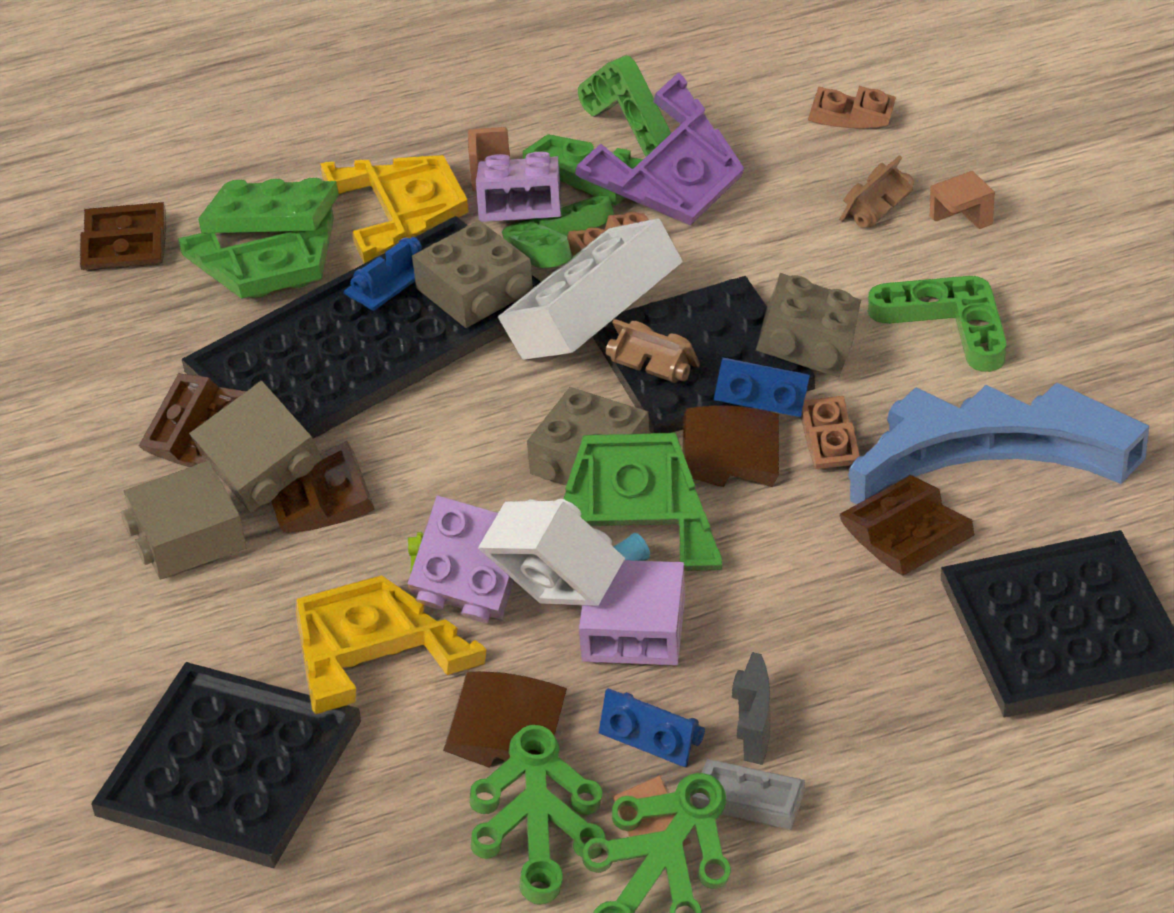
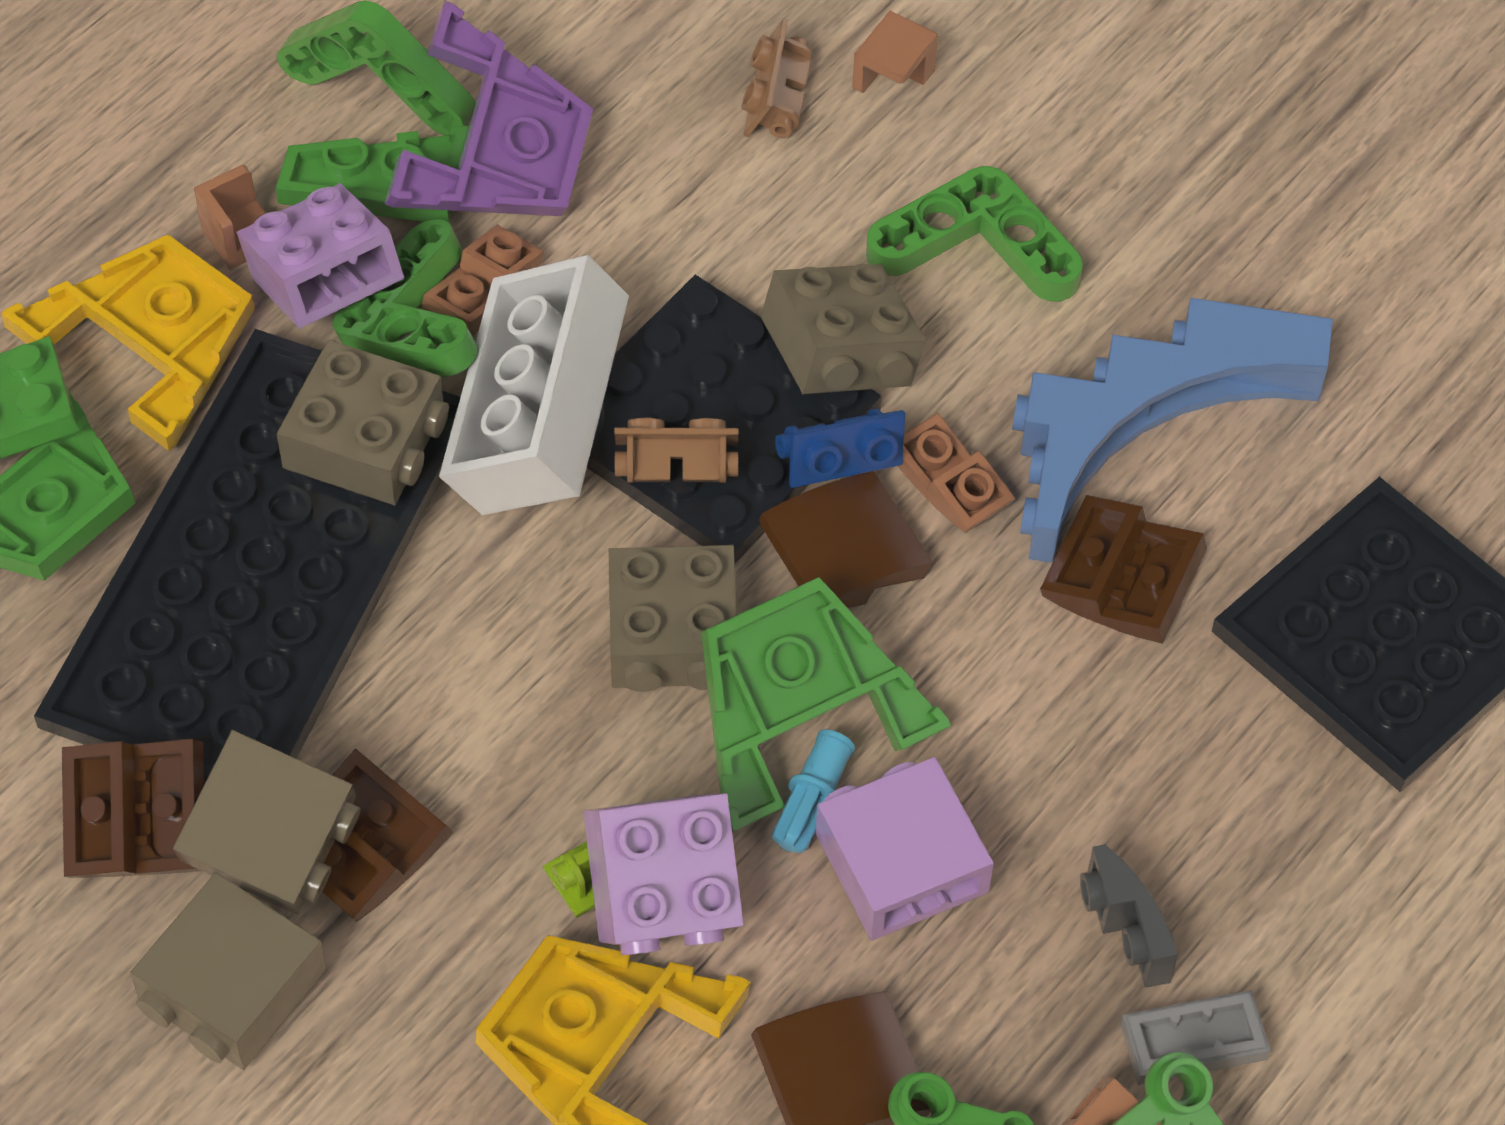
camera: 35 degrees left, 15 degrees up
(383, 280) = (243, 470): blue hinge -> none
(552, 552) = (793, 826): white brick -> none
(649, 727) = (1038, 1001): blue hinge -> none

